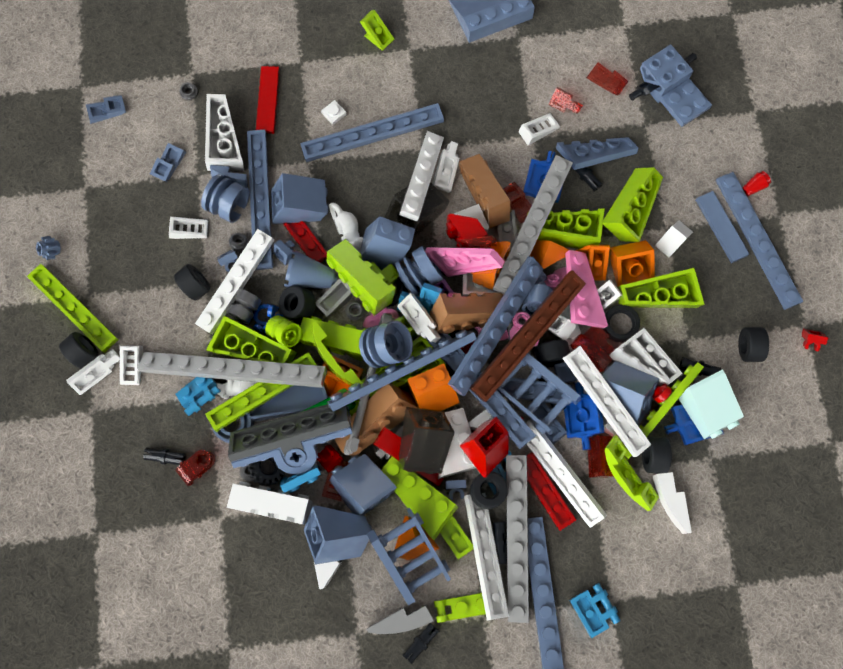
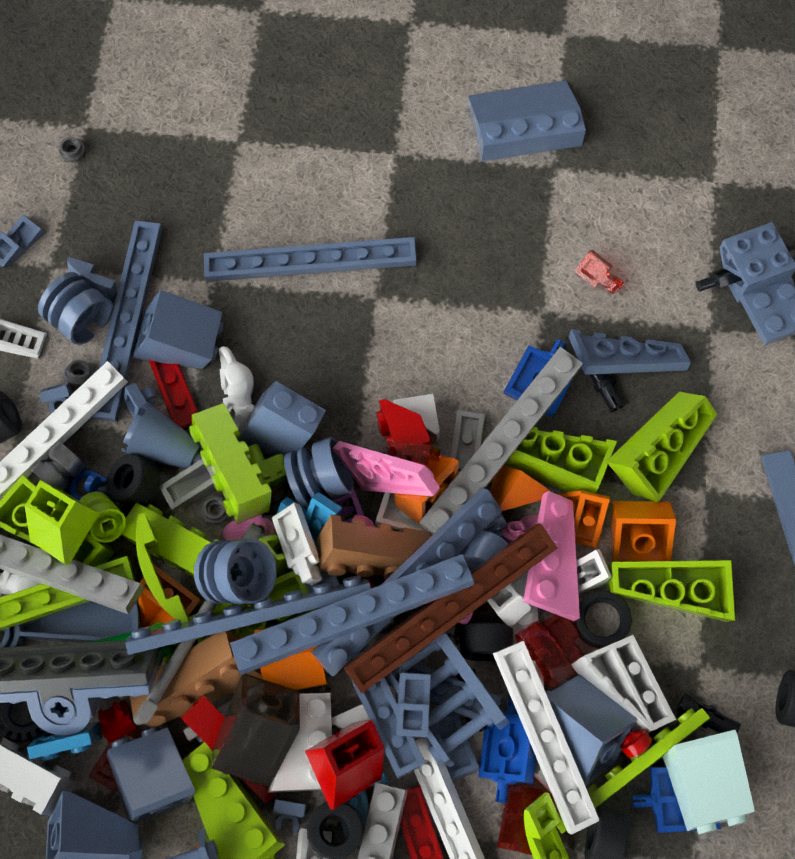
camera: 15 degrees right, 5 degrees down
(221, 135) = (96, 219): white wedge -> none
(259, 339) = (58, 521): none -> lime slope
(267, 99) = (177, 182): red tile -> none
(333, 112) = (264, 220): white plate -> none
(376, 30) = (353, 118): lime slope -> none
(421, 176) = (359, 337): white plate -> none
(433, 206) = (343, 378): clear smoke slope -> none
(446, 168) = (402, 332): white hinge -> none
(468, 353) = (351, 614): none -> sand blue plate
(486, 190) = (448, 377): medium nougat wedge -> none
(517, 201) = (491, 399): clear red slope -> none
(519, 401) = (413, 705): none -> sand blue slope
(528, 133) = (536, 310): white slope -> none
(564, 373) = (492, 677): sand blue tile -> none
(609, 81) = (673, 257): clear red slope -> none
(673, 238) = (714, 508): white slope -> none

